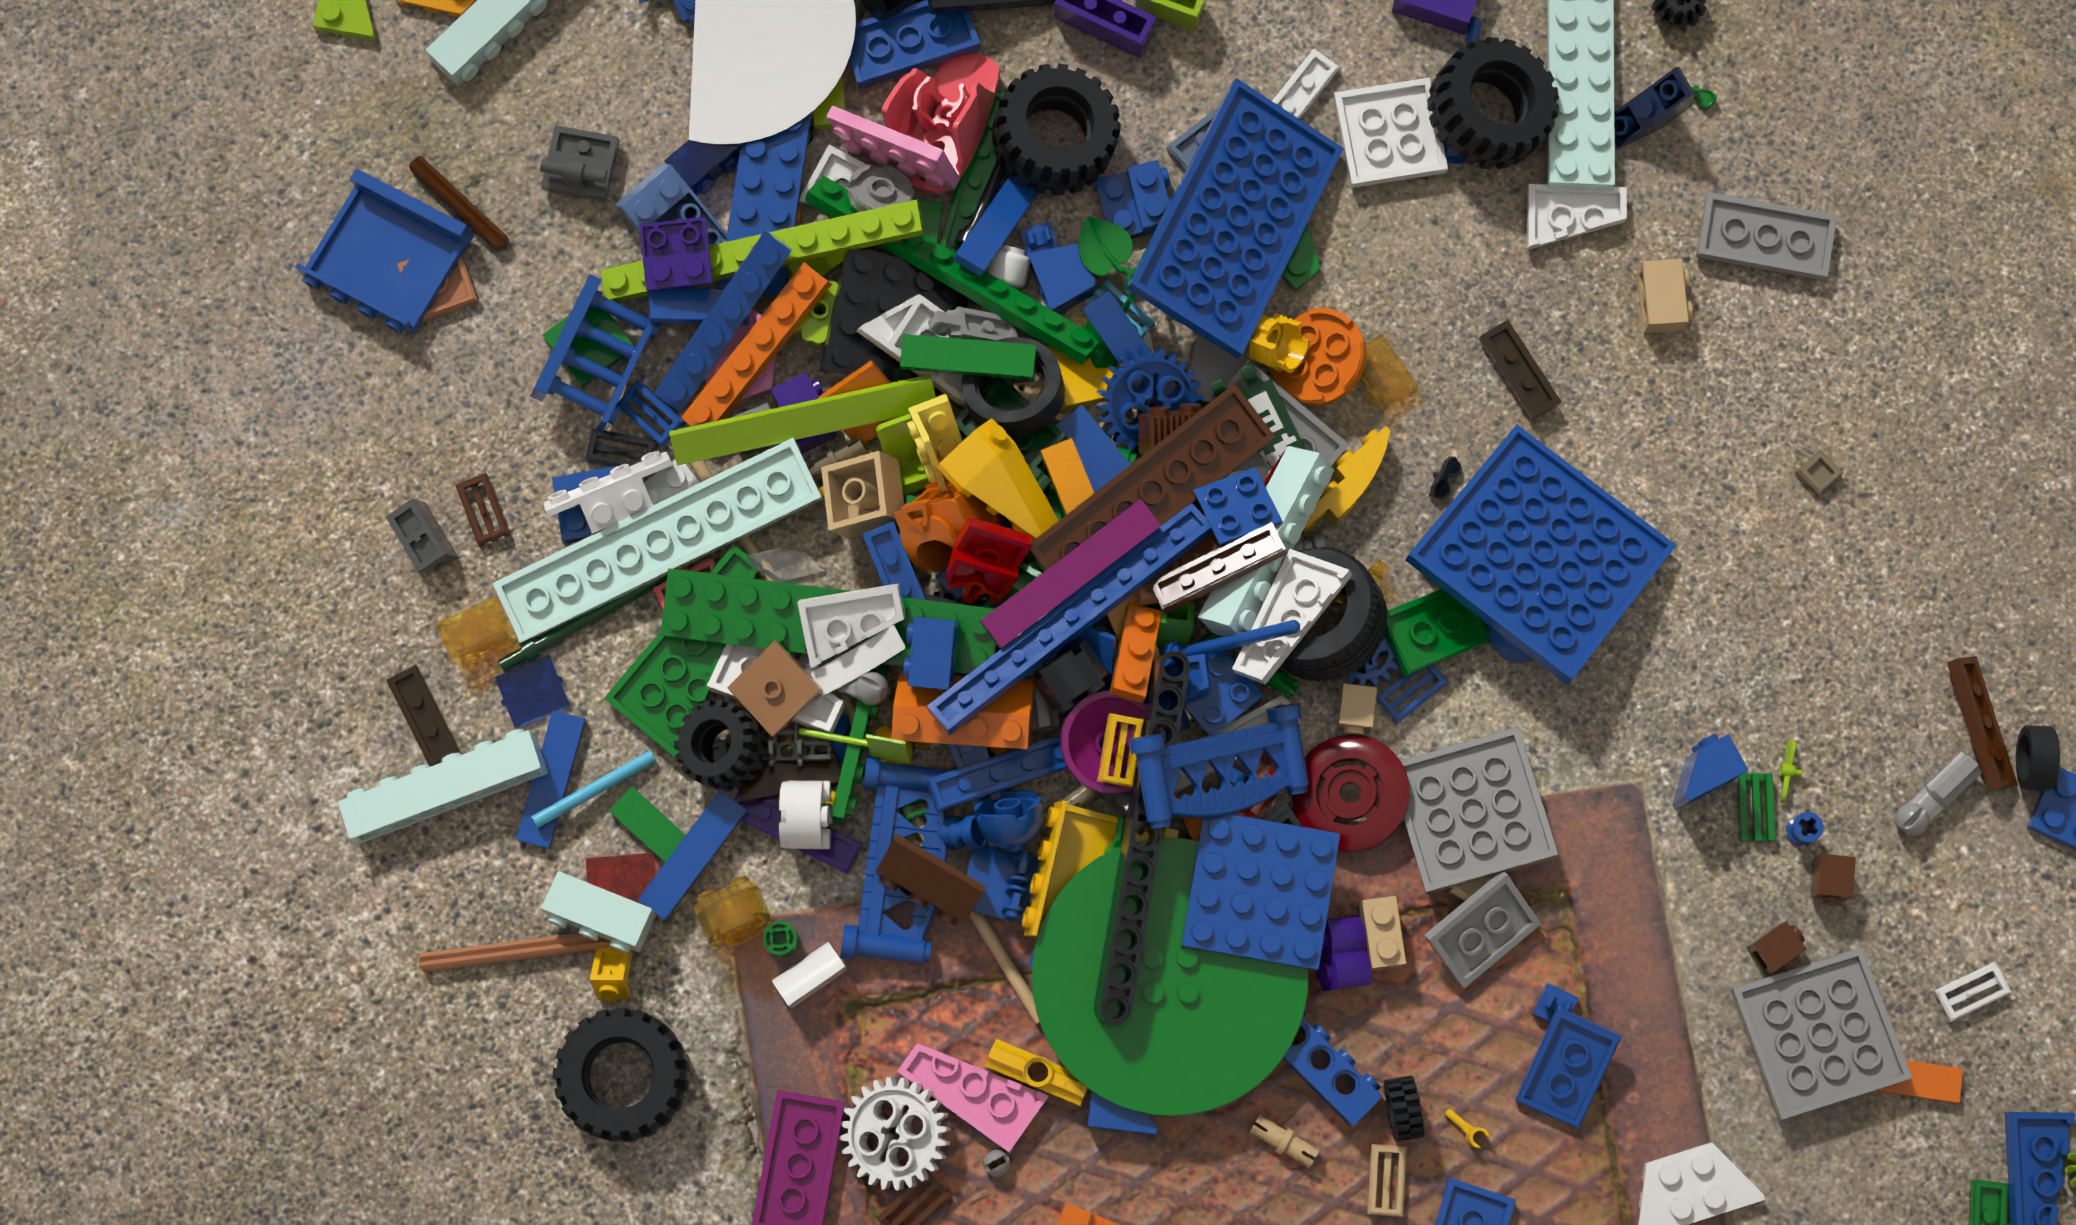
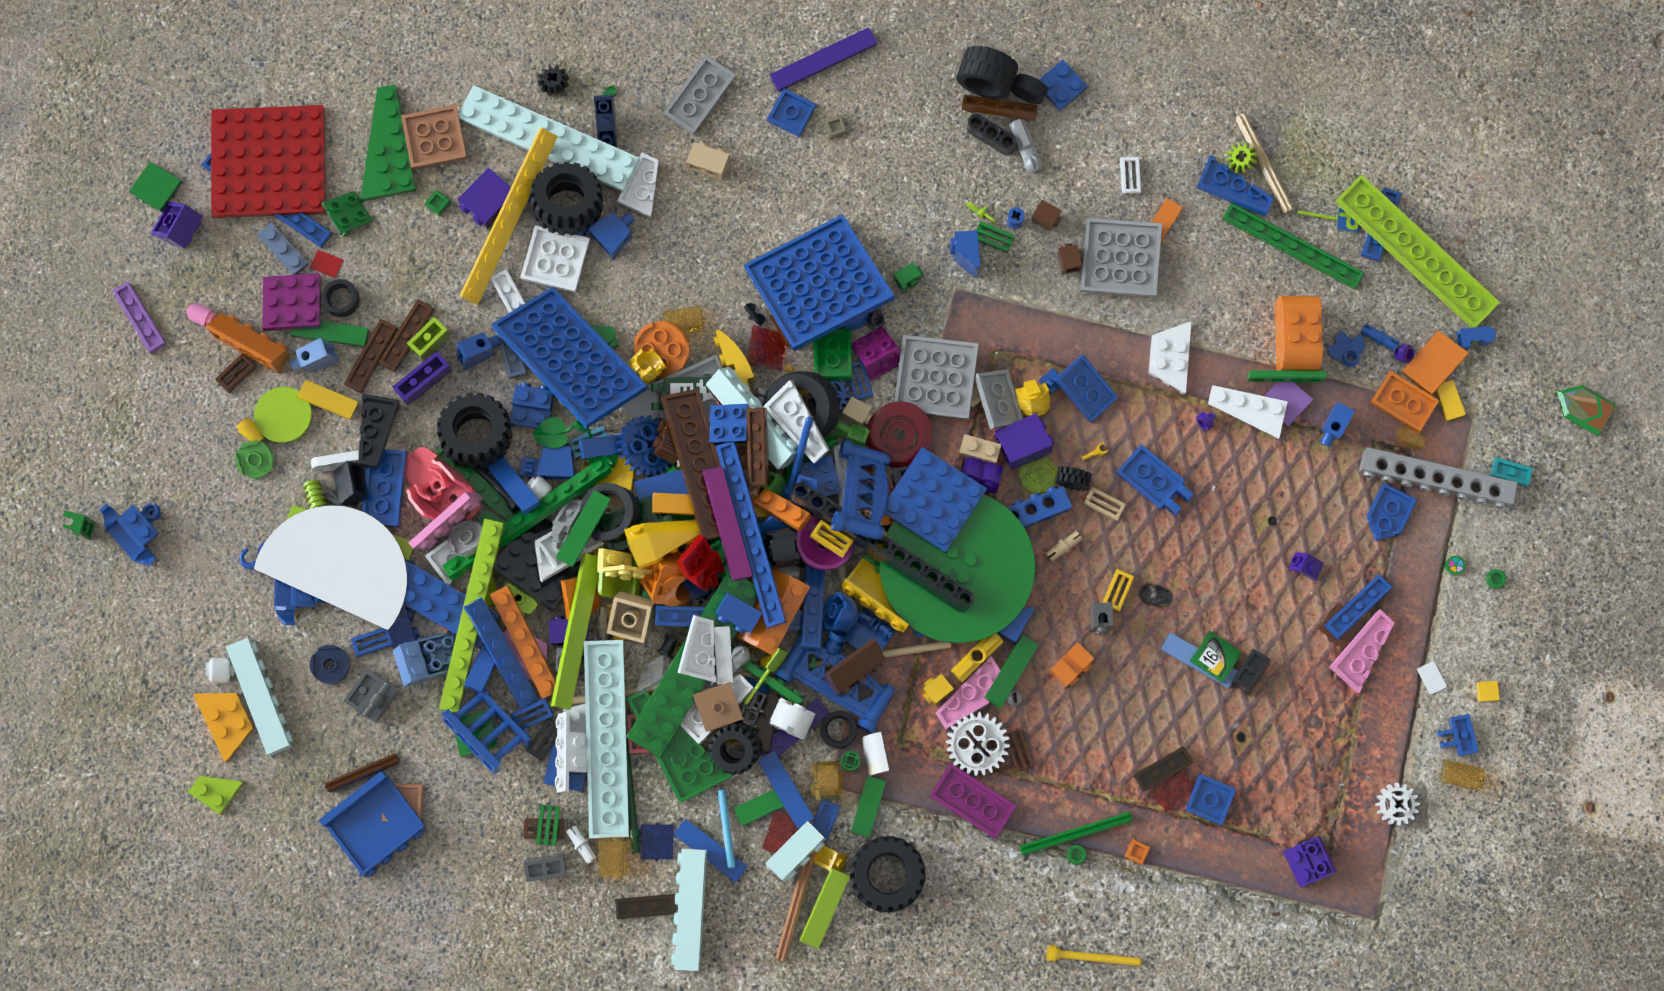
camera: 70 degrees left, 0 degrees up
(479, 576) = (581, 844): none -> white axle
(510, 492) = (548, 822): none -> green tile
(529, 997) = (824, 908): none -> lime tile
(600, 100) = (322, 656): none -> dark blue plate
(647, 109) = (379, 647): none -> blue tile
(674, 939) = (825, 818): none -> blue tile
(676, 254) = (453, 661): dark purple plate -> none
(721, 999) = (868, 806): none -> green tile
(817, 874) = (853, 729): none -> black tyre
(845, 574) = (668, 646): none -> black bush
(955, 1029) = (936, 689): none -> yellow brick
(1036, 1139) = (1011, 671): none -> green tile
(1187, 76) = (476, 349): none -> blue torso
(1317, 720) = (855, 433): none -> bright green plate
(1386, 1047) = (1038, 475): none -> clear neon green tile
(1395, 519) = (766, 348): none -> clear red hinge
(1423, 29) = (508, 216): none -> yellow plate
(1431, 1001) = (1024, 441): none -> dark purple brick
(1470, 699) = (877, 352): none -> magenta bracket
(1473, 200) = (612, 232): none -> blue torso
(1510, 987) = (1033, 398): none -> yellow hair
(1519, 370) = (714, 250): dark brown plate -> none
(1526, 681) = (880, 319): none -> black plate
(1621, 695) = (908, 277): none -> green brick
(1808, 393) = (791, 112): none -> blue tile
(1924, 405) = (823, 59): none -> dark purple tile
(1939, 716) = (988, 126): none -> black beam
(2030, 674) = (987, 72): none -> black tyre

